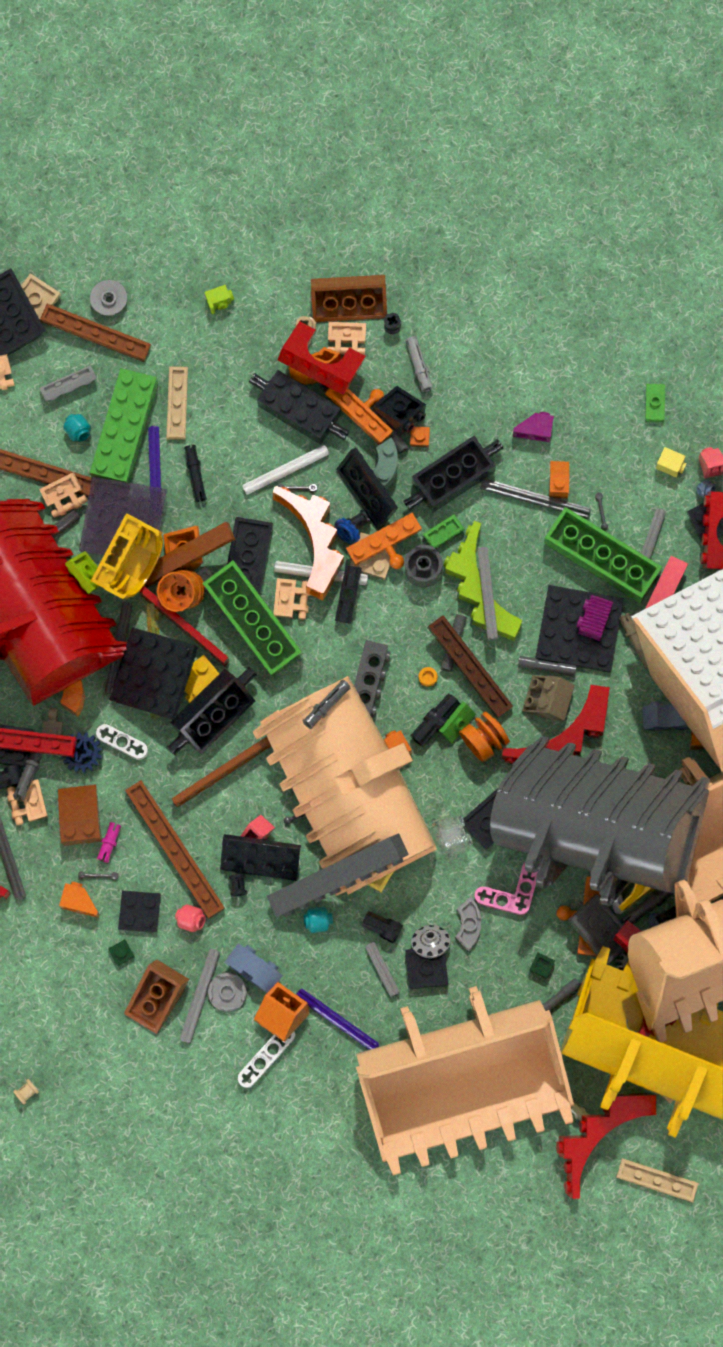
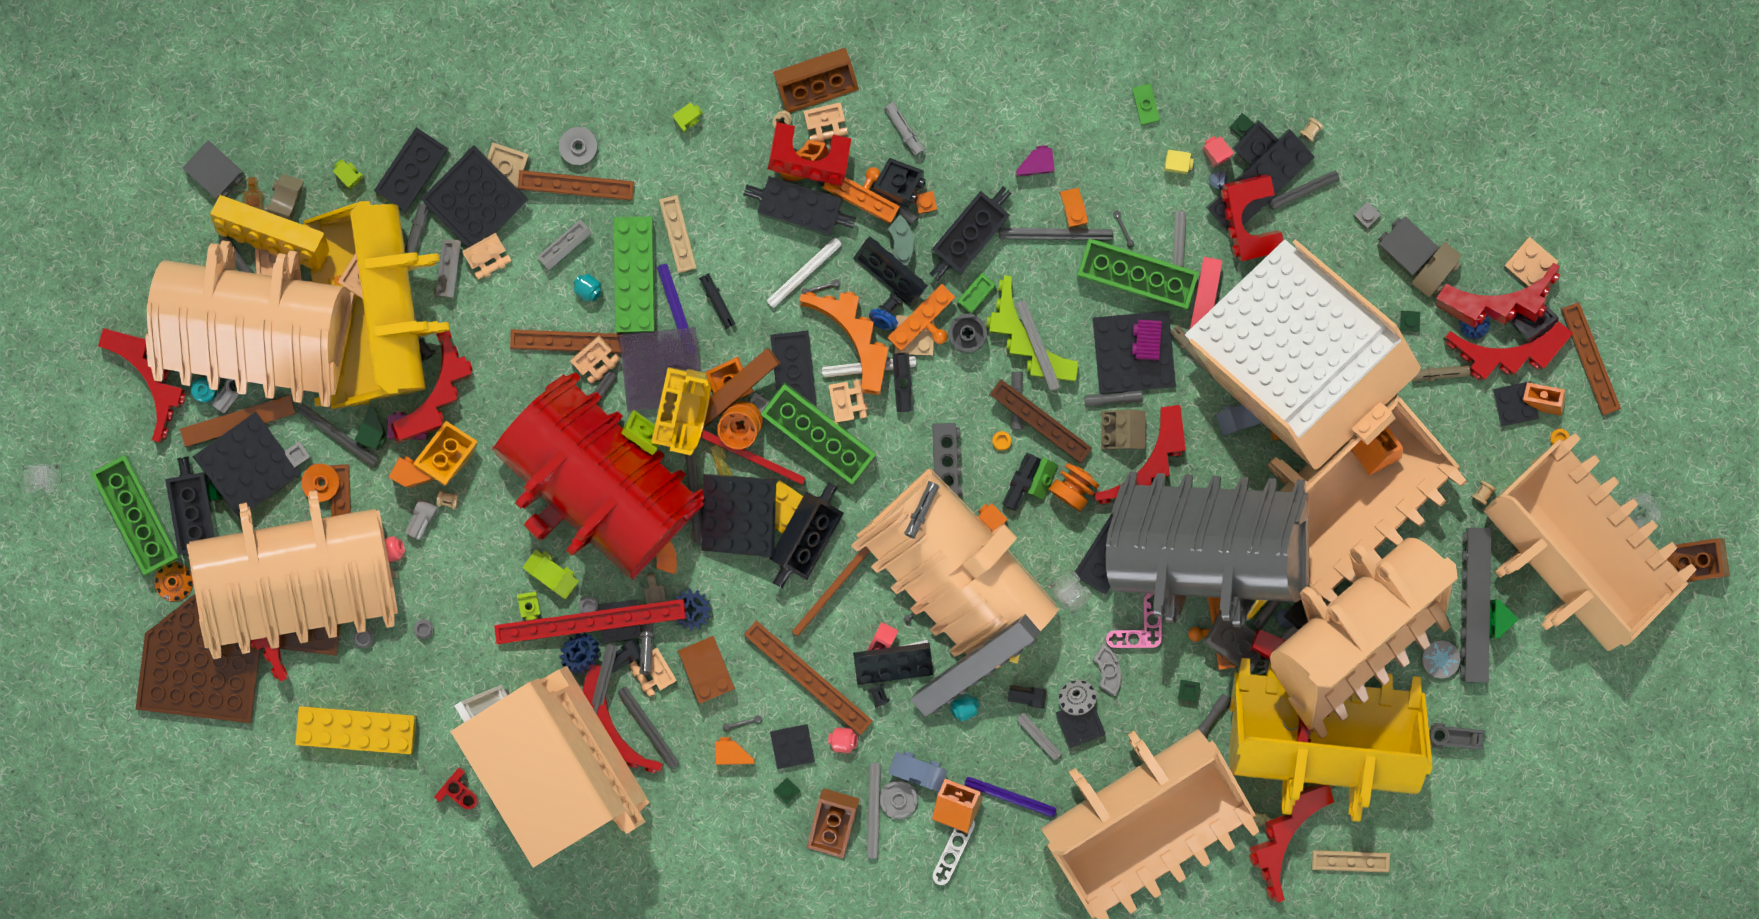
camera: 25 degrees left, 10 degrees up
(107, 740) = (713, 580): white beam -> none
(109, 842) = (743, 689): dark pink pin -> none
(395, 328) = (862, 91): black bush -> none

